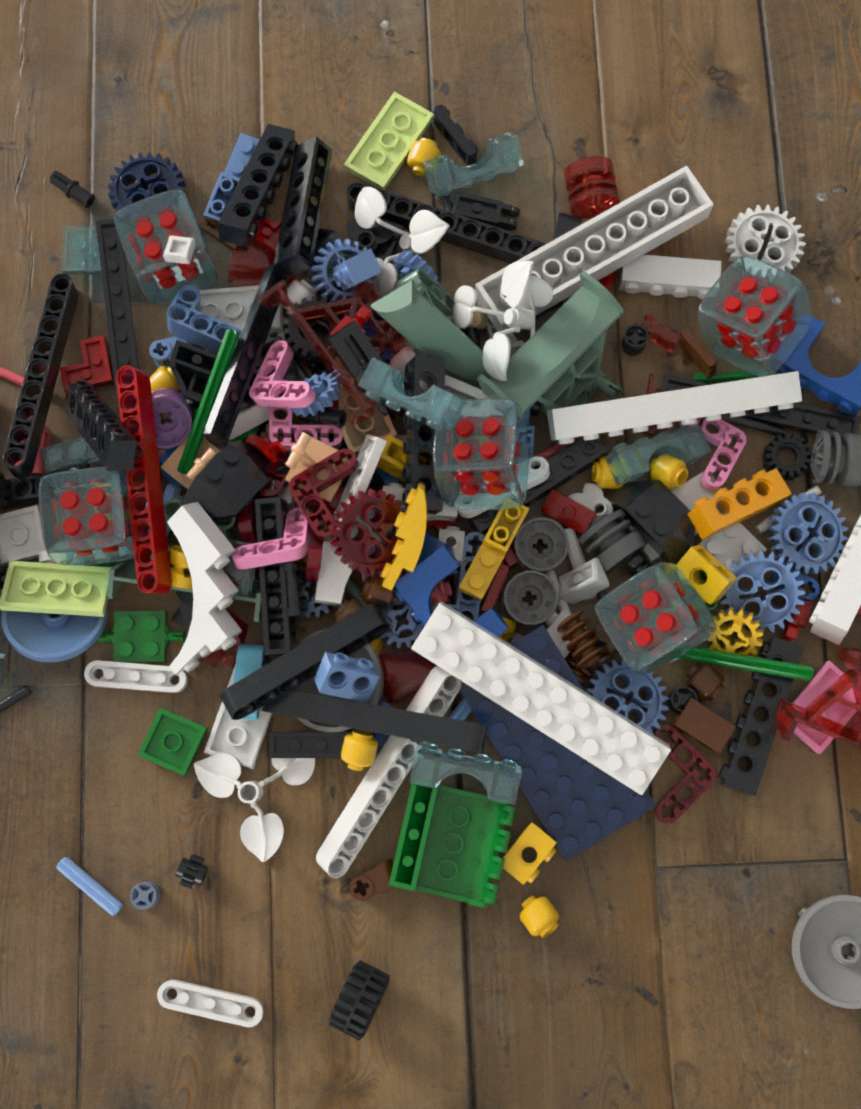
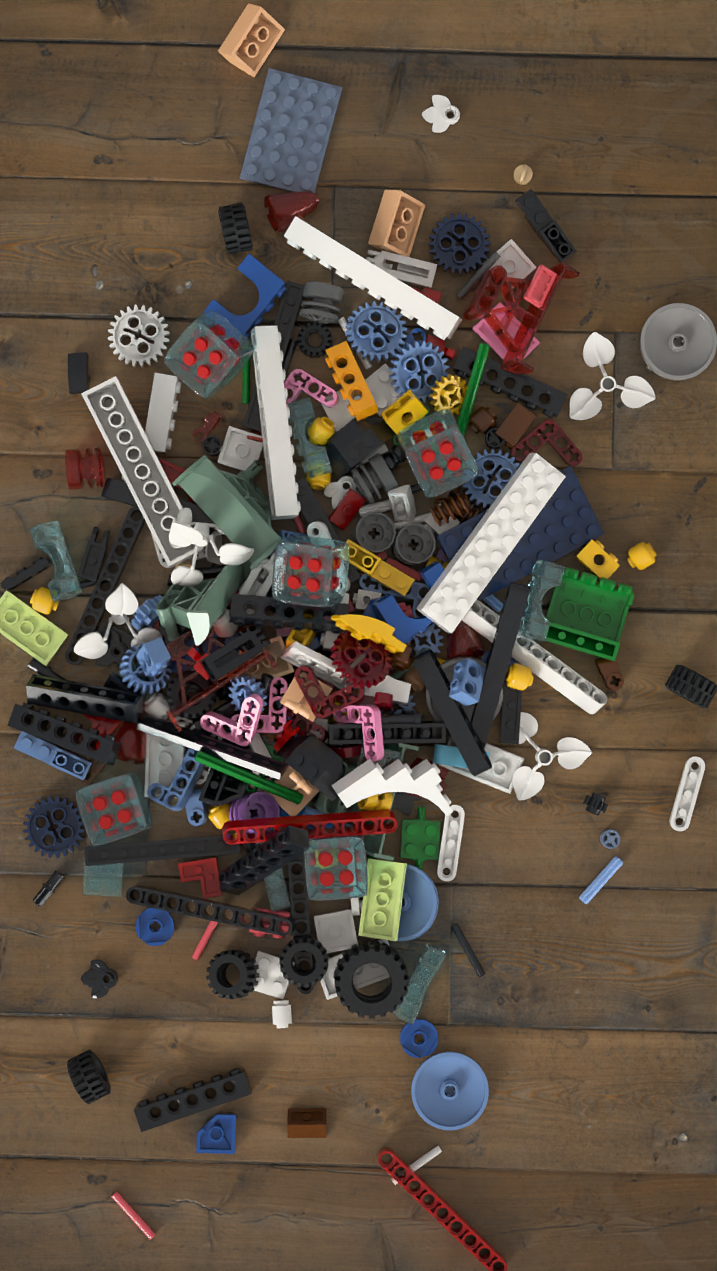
camera: 90 degrees left, 10 degrees up
(16, 307) = (148, 934): none -> blue plate
(172, 741) = (500, 816): green plate -> none
(179, 249) = (129, 793): white tile -> none
(337, 164) = (42, 670): none -> black pin
(435, 405) = (253, 638): clear light blue arch -> none
(632, 371) = (238, 450): none -> white plate
(698, 353) = (228, 398): reddish brown tile -> none
(714, 175) = (78, 373): none -> black slope
(771, 894) = (585, 404): none -> white plant

